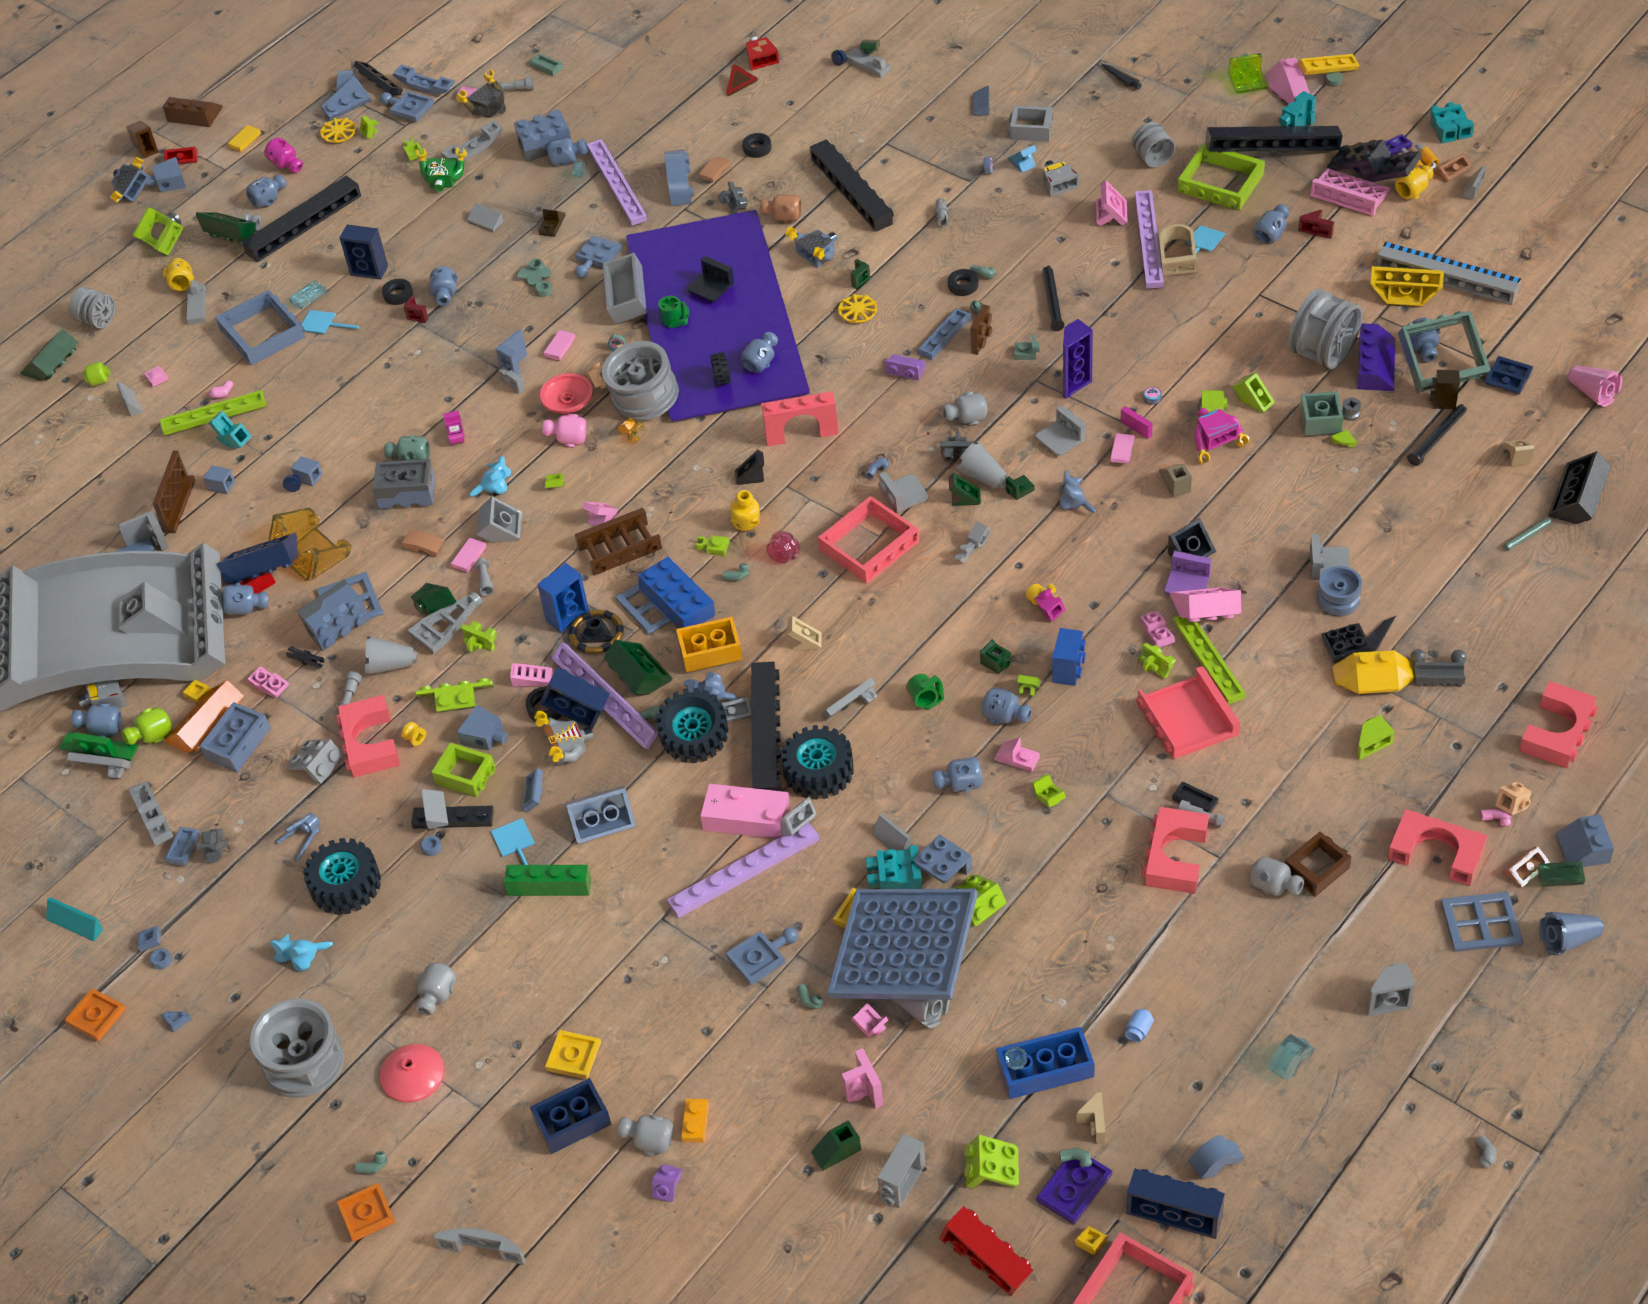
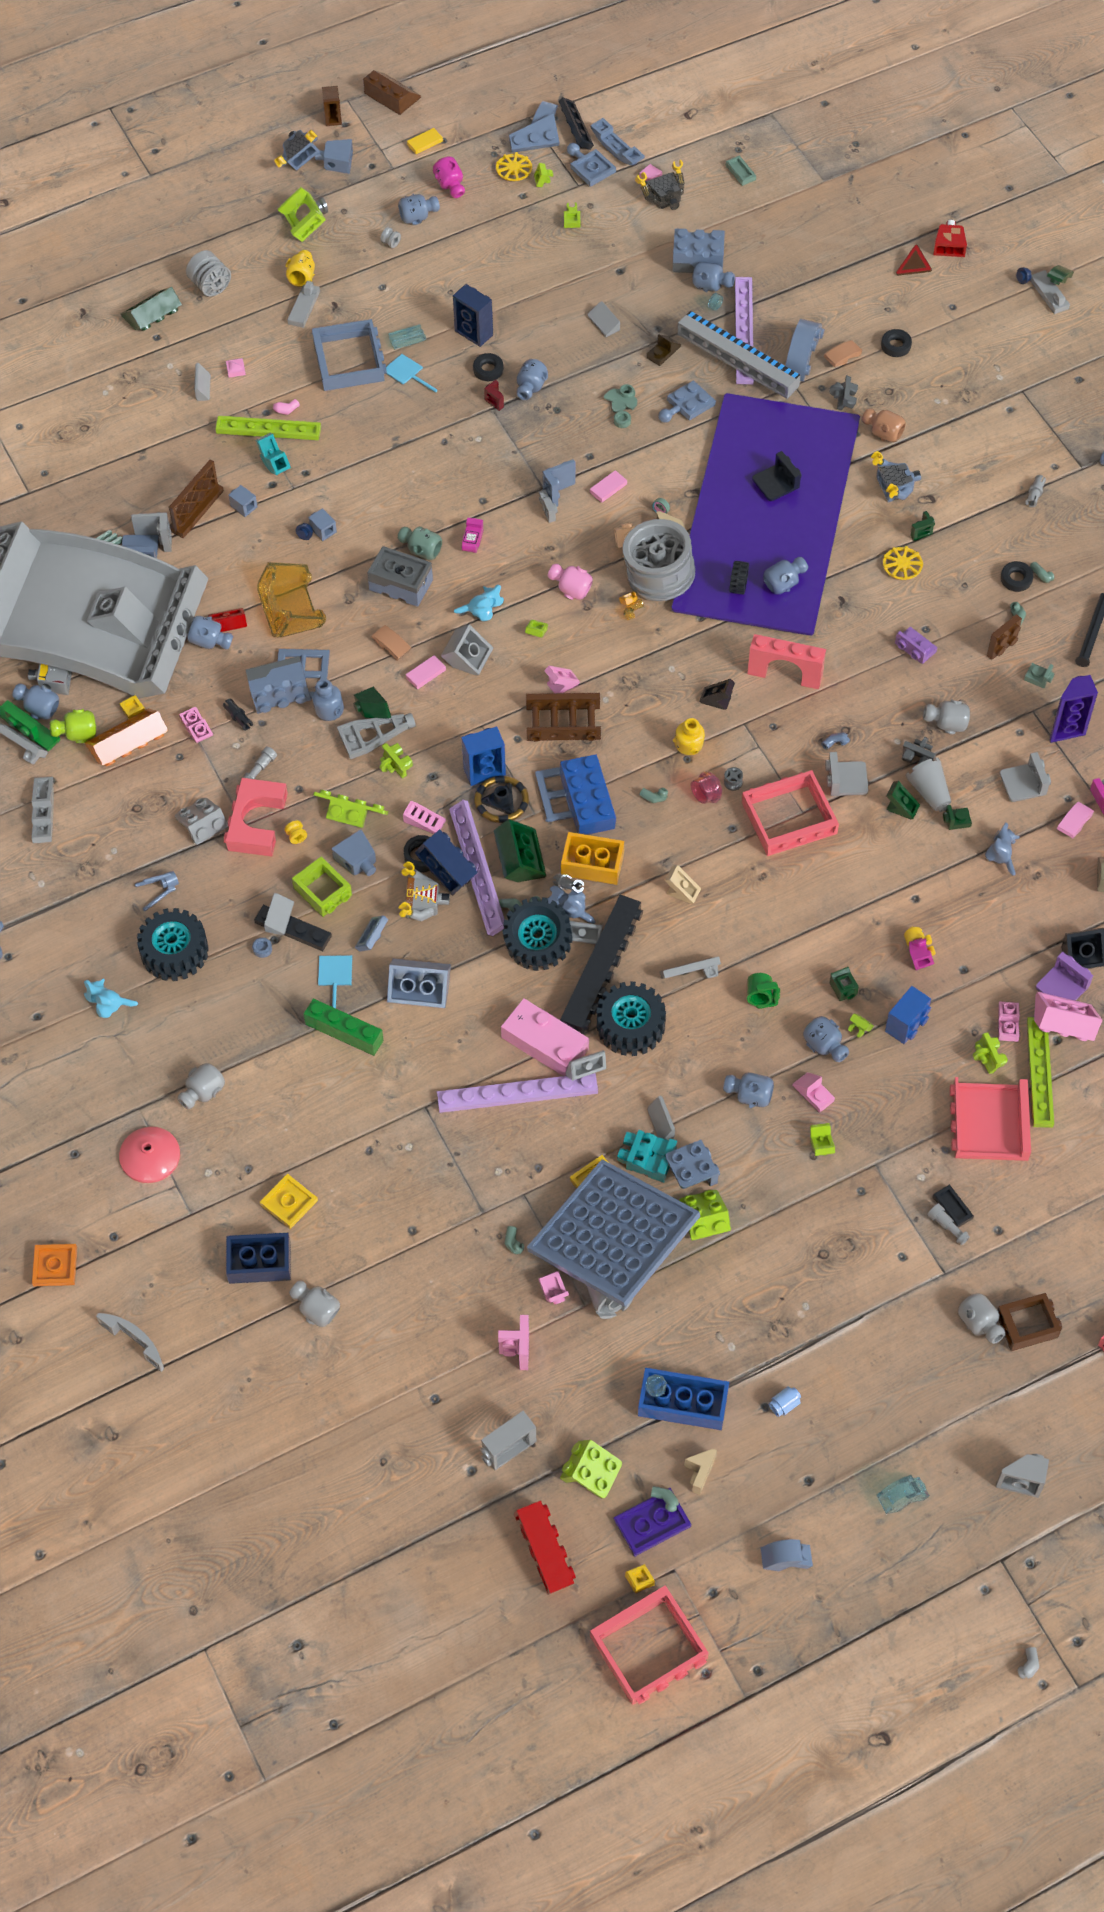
camera: 20 degrees right, 10 degrees up
(96, 373) = (184, 344): lime head -> none
(182, 846) = (54, 854): sand blue plate -> none
(183, 155) = (360, 137): red slope -> none
(212, 842) = (79, 864): dark grey hips -> none
(226, 226) = (365, 234): dark green slope -> none
(235, 737) = (143, 768): sand blue piece -> none
(259, 558) = (240, 599): dark blue slope -> none
(301, 218) = (437, 252): black brick -> none
(307, 1071) = (63, 1115): light grey wheel -> none
(374, 1166) = (79, 1226): sand green arm -> none
(387, 655) = (306, 745): light grey cone -> none
(388, 610) = (327, 701): none -> sand blue piece
(442, 172) = (587, 253): green torso -> none
(477, 144) = (632, 235): light grey slope -> none
(485, 585) = (425, 711): light grey piece -> none
(526, 83) = (712, 185): light grey piece -> none
(566, 393) = (588, 542): coral dish -> none
(623, 199) = (739, 354): none -> light grey brick
(624, 288) = (693, 452): light grey piece -> none
(665, 1182) = (310, 1354): medium lavender bracket -> none
(671, 312) = (724, 497): green piece -> none
(695, 1120) = (362, 1309): light orange plate -> none
(696, 672) = (567, 882): none -> light grey pin
(715, 545) = (648, 757): lime plate -> none
(759, 956) = (488, 1182): sand blue plate -> none
(802, 531) = (734, 774): none -> dark grey wheel
(836, 1145) = (466, 1391): dark green slope -> none
(851, 185) = (963, 425): black brick -> none
(944, 334) = (970, 624): sand blue tile -> none
(975, 540) = (888, 856): light grey piece -> none
(1169, 826) = (913, 1223): coral arch -> none
(1175, 1203) = (727, 1581): dark blue brick -> none

